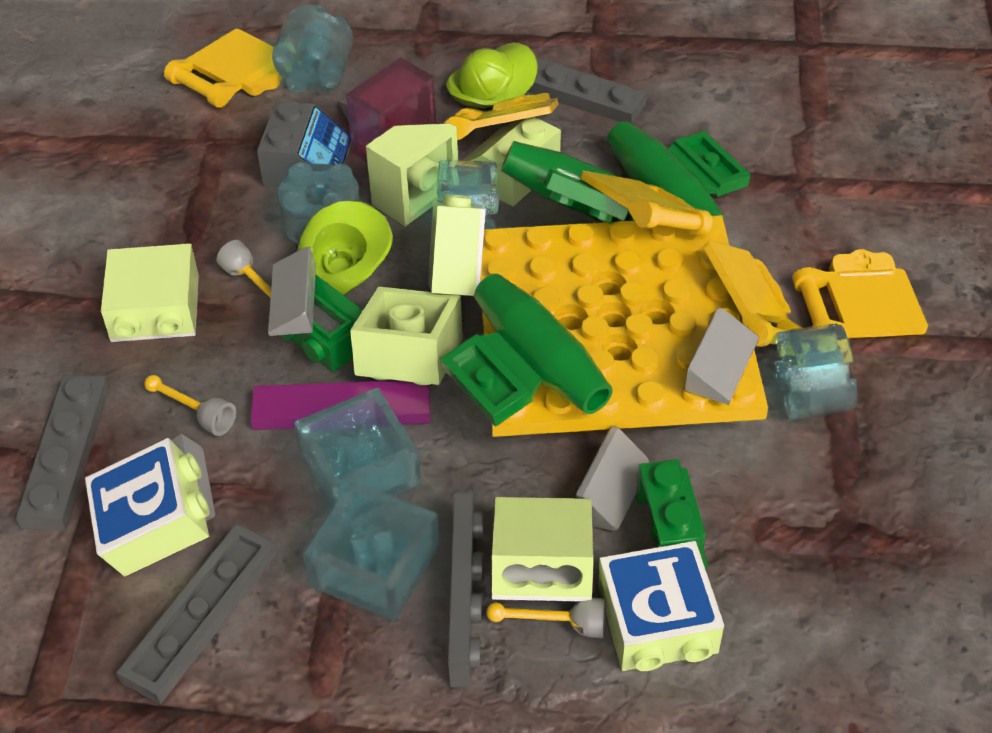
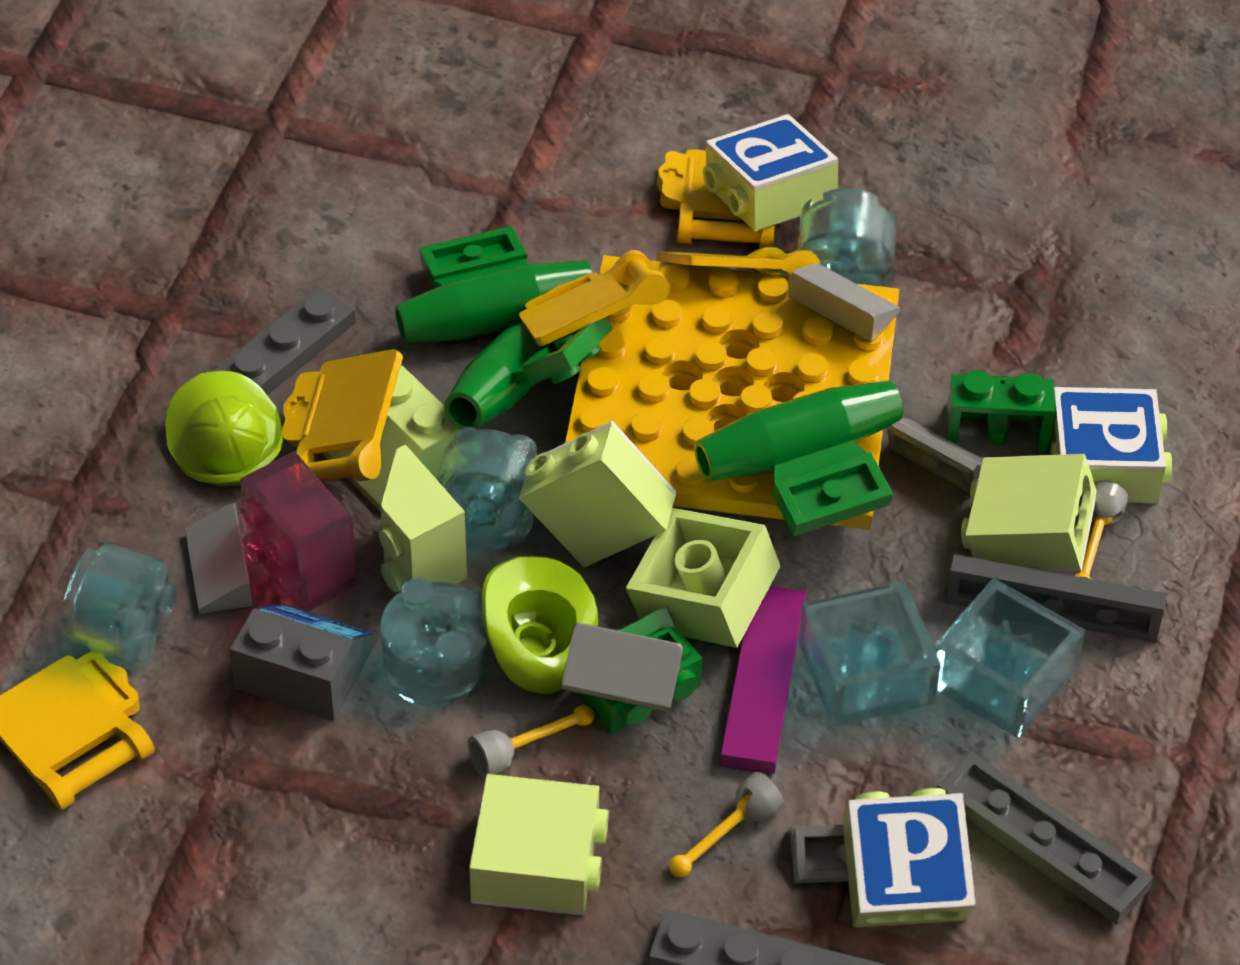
camera: 80 degrees left, 0 degrees up
(878, 307) = (769, 171): none -> piece

